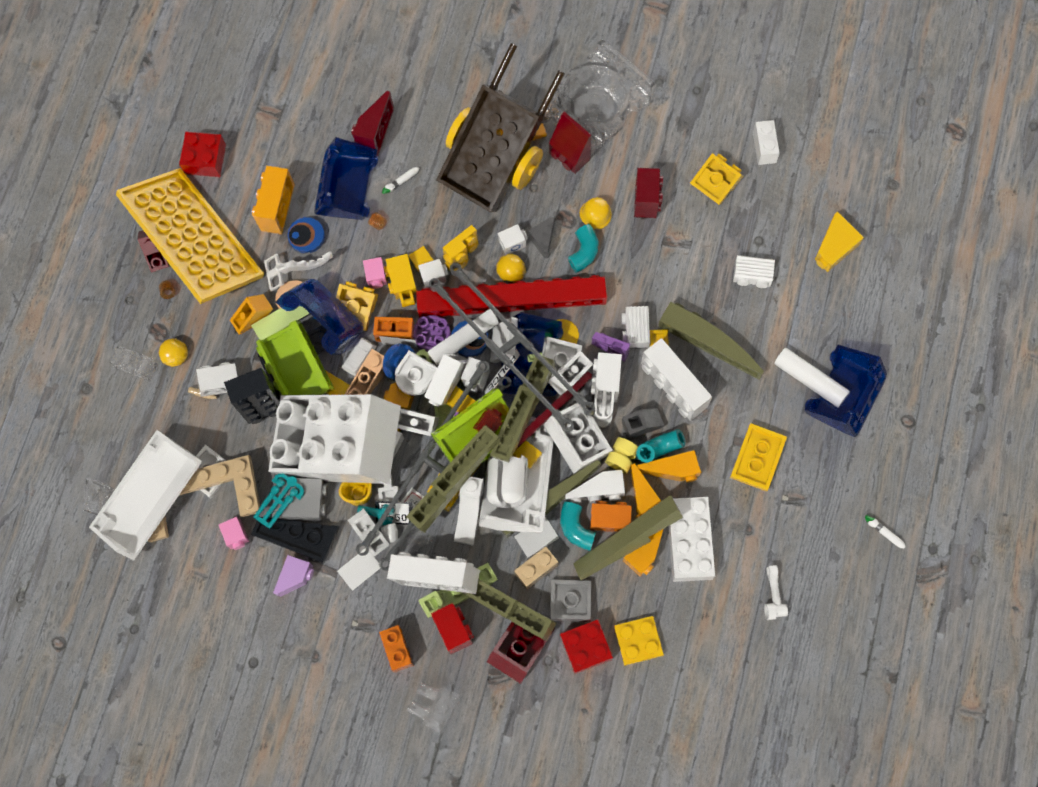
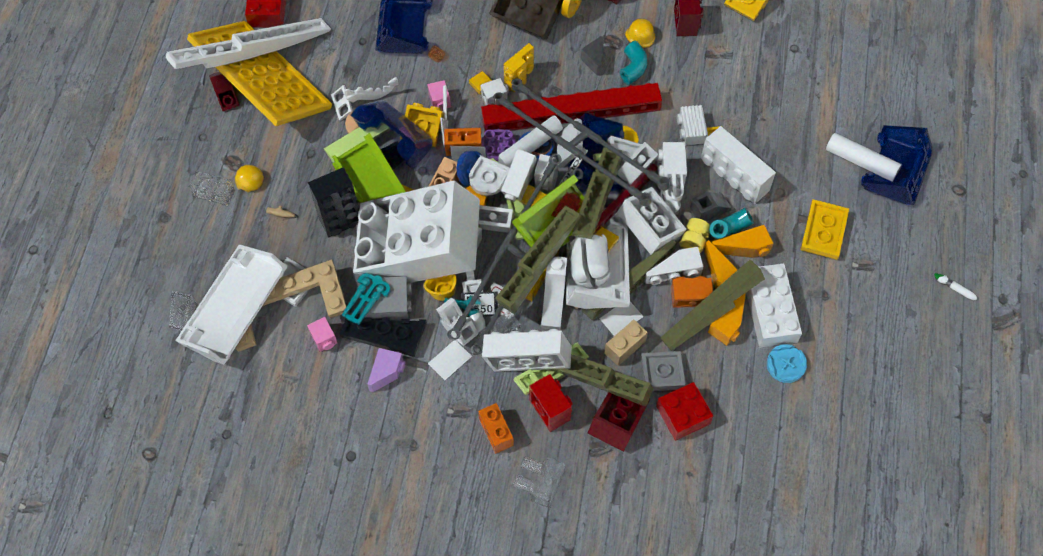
camera: 10 degrees left, 10 degrees down
(166, 285) = (239, 120): clear orange piece -> none
(176, 206) = (247, 44): none -> white slope
(212, 379) = (293, 197): white brick -> none
(249, 312) = (322, 135): light orange slope -> none
(273, 199) = (337, 38): light orange brick -> none
(306, 235) = (369, 70): tile -> none
(357, 356) = (428, 170): white tile -> none
(377, 306) = (444, 122): none -> white piece
(400, 180) = (445, 25): white piece -> none
(401, 278) = (465, 99): yellow brick -> none
(511, 268) = (567, 83): yellow hair -> none
(512, 239) = (565, 60): white brick -> none
(572, 528) = (656, 304): teal cylinder -> none
(611, 345) = (670, 136): medium lavender wing -> none
(638, 640) = (734, 403): yellow plate -> none
(697, 602) = (786, 363): none -> medium azure tile
(704, 335) = (762, 130): olive slope -> none
(753, 271) = (794, 71): white brick -> none
(774, 609) = (862, 363): white brick -> none
(837, 243) = (868, 43): yellow slope -> none

